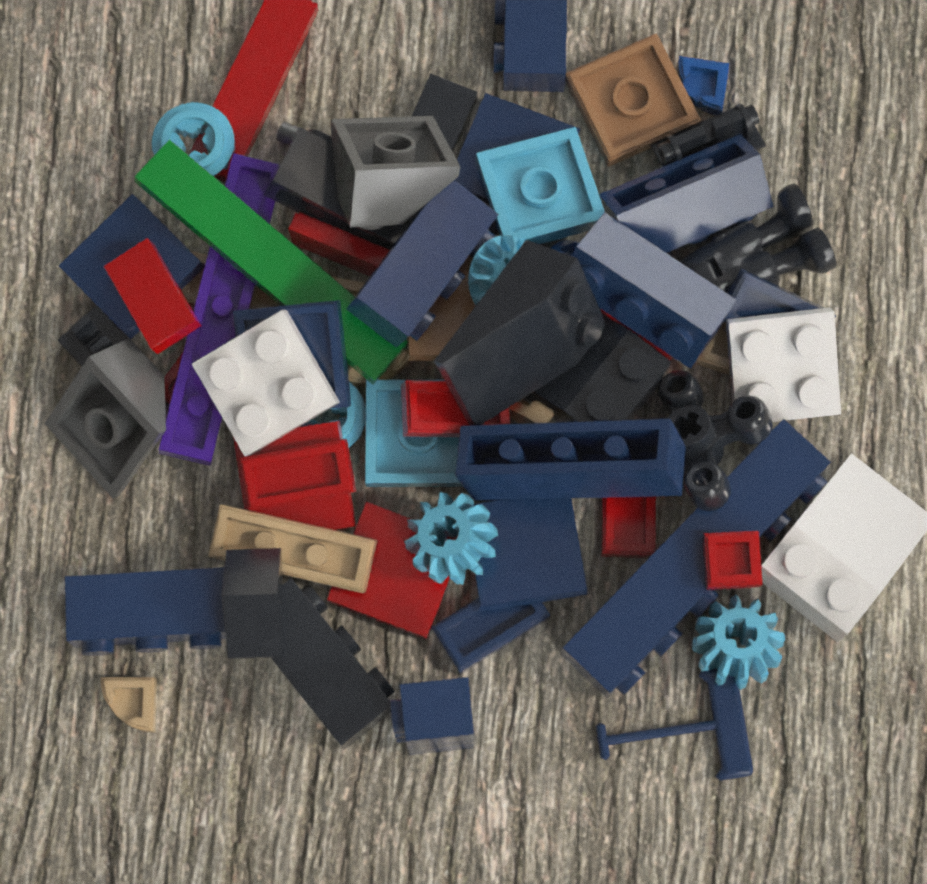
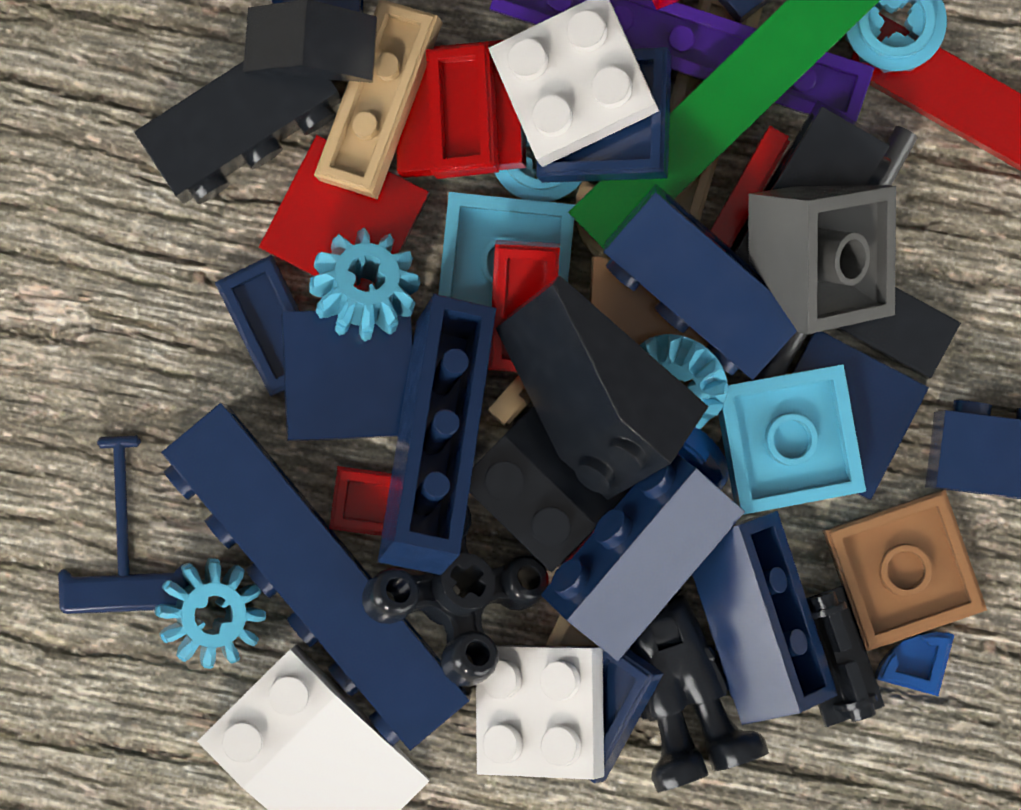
camera: 90 degrees right, 10 degrees up
(434, 716) = (144, 239): dark blue brick -> none
(732, 560) = (300, 615): red tile -> none

